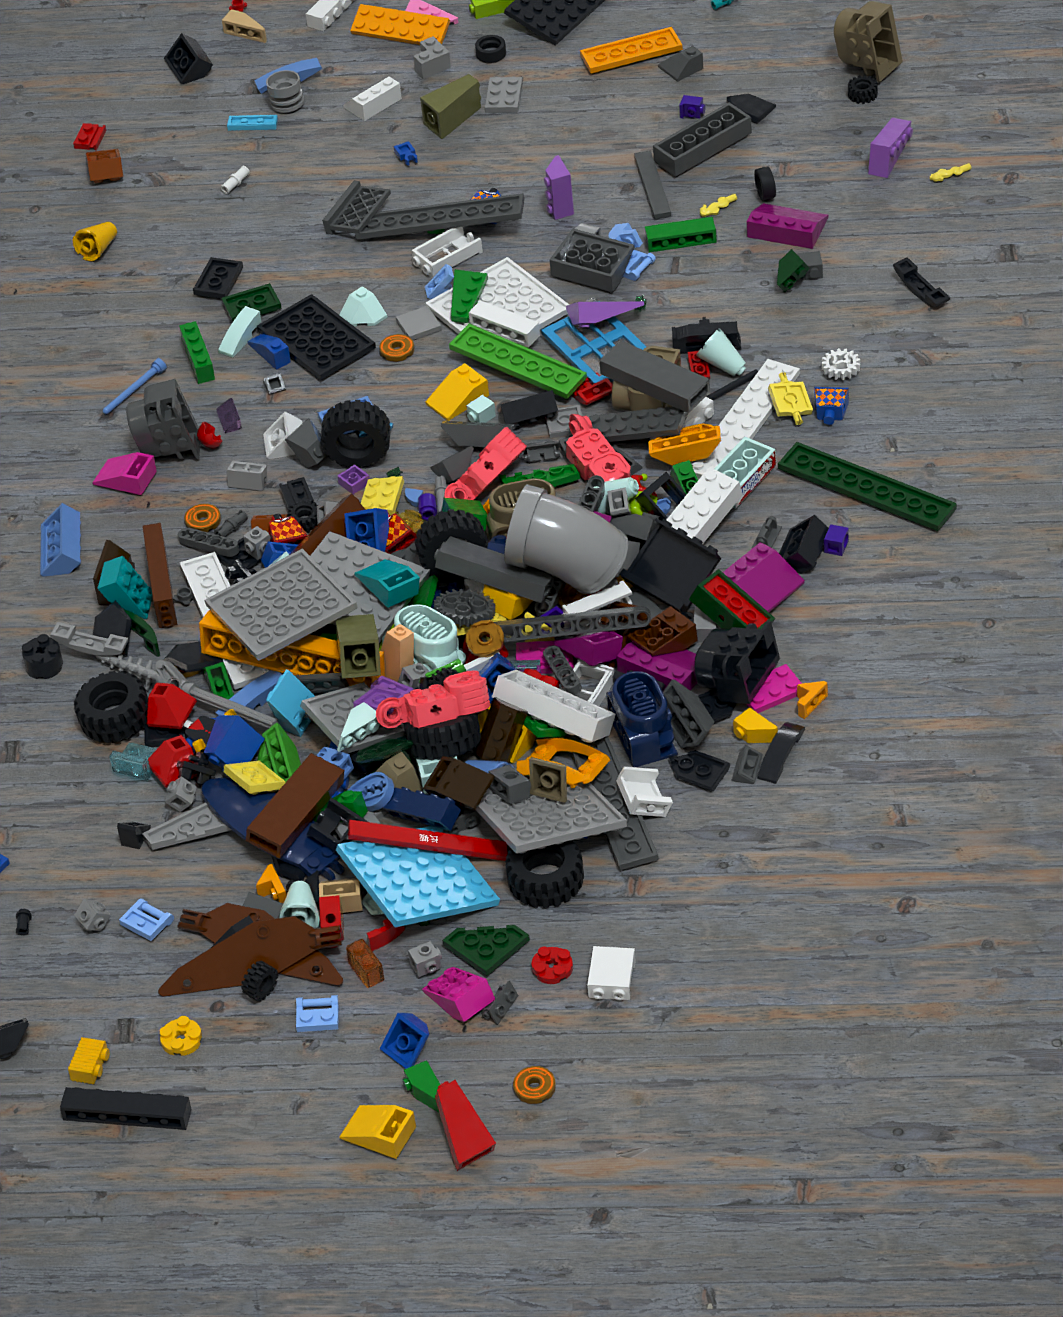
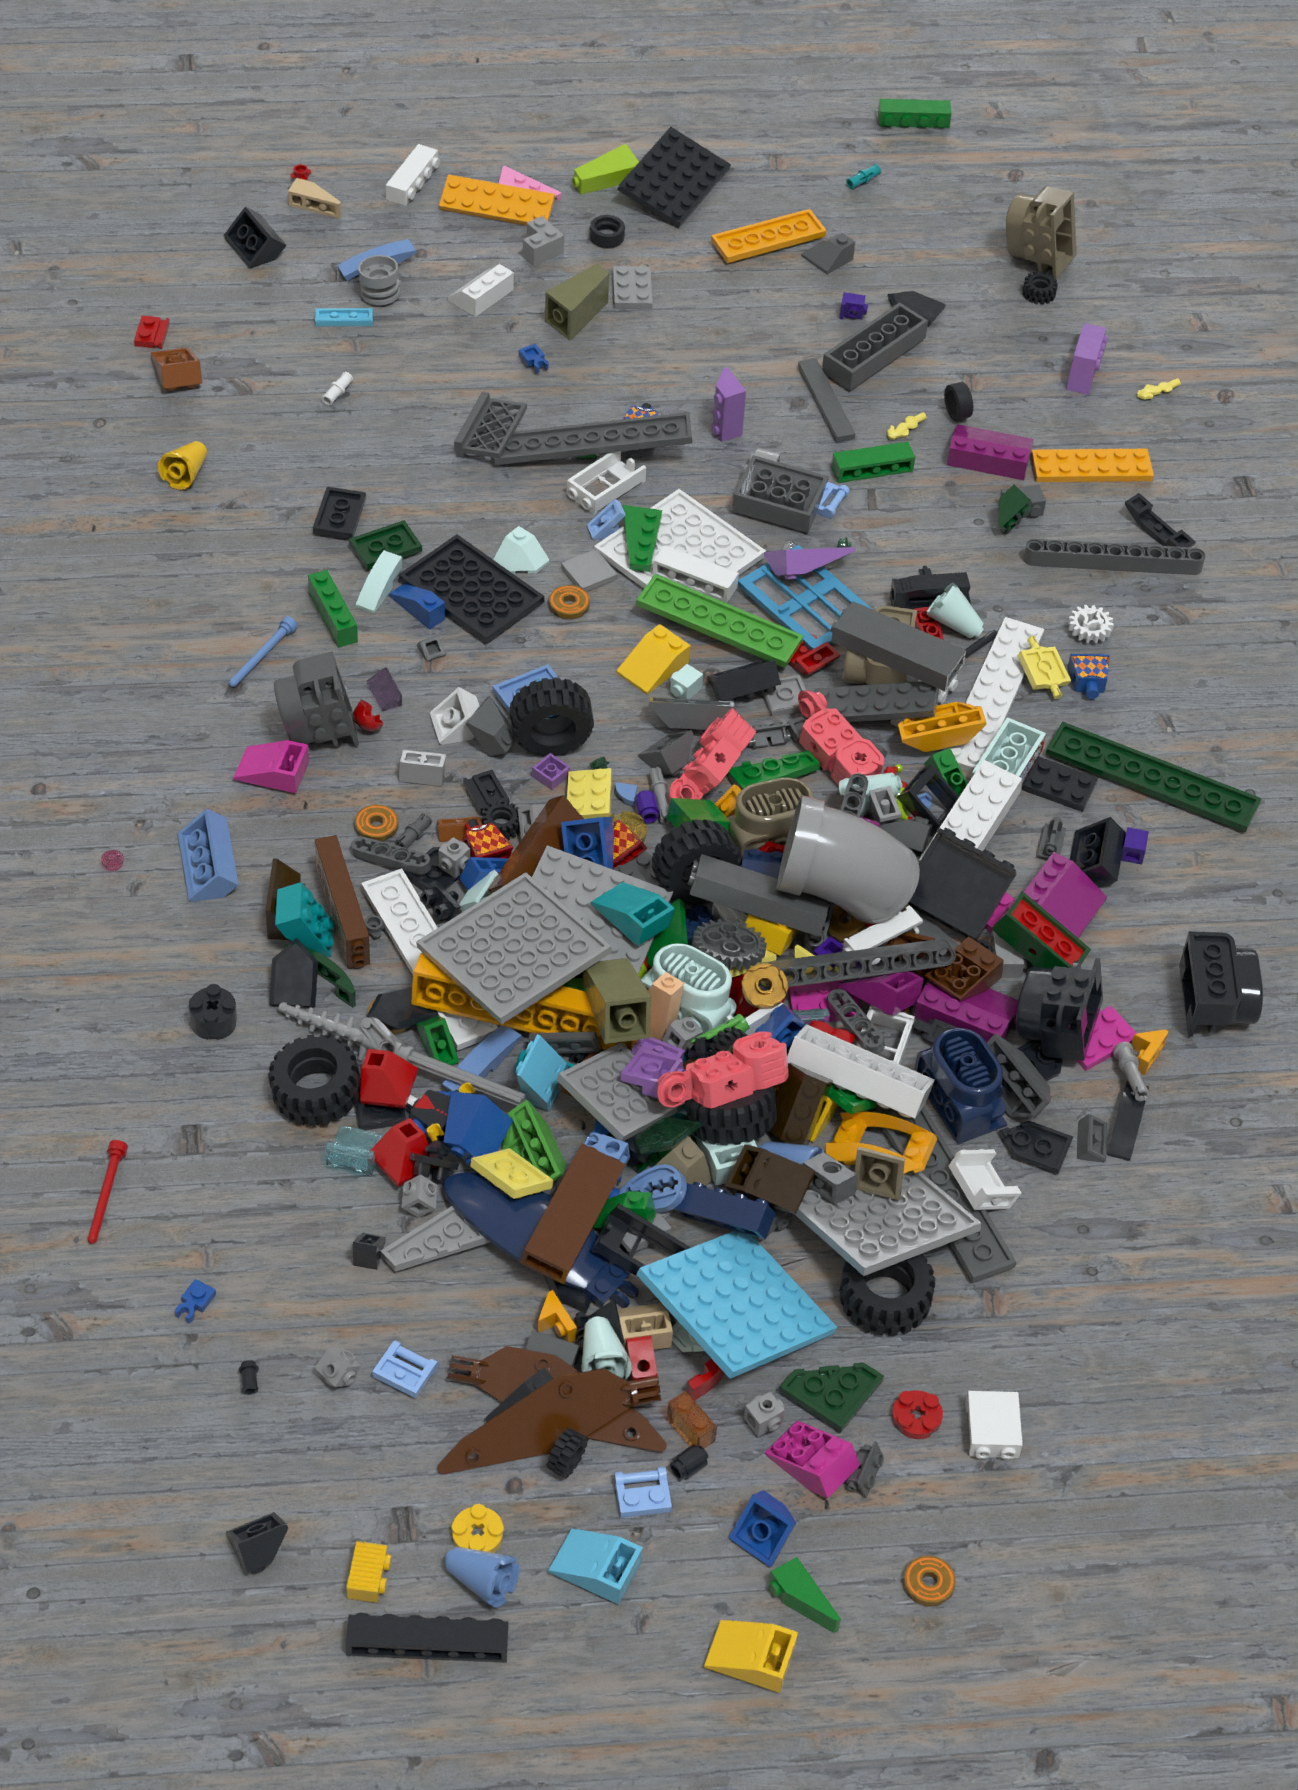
camera: 15 degrees left, 5 degrees up
(88, 643) = (268, 993): light grey slope -> none
(179, 1064) = (484, 1573): none -> medium blue cone
(271, 1061) = (598, 1563): none -> medium azure slope
(357, 992) = (689, 1462): none -> black brick
(359, 724) = (633, 1105): light aqua slope -> none
(427, 840) = (740, 1254): red tile -> none
(462, 1125) = (859, 1647): red slope -> none
(625, 233) = (809, 460): light blue brick -> none
(754, 727) = (1093, 1090): yellow slope -> none
(785, 491) = (1060, 784): none -> black plate
(789, 708) = (1129, 1065): none -> light grey pin
(874, 236) = (1092, 465): none -> light orange plate
(875, 310) = (1114, 556): none -> dark grey beam
(878, 643) = (1219, 982): none -> black brick

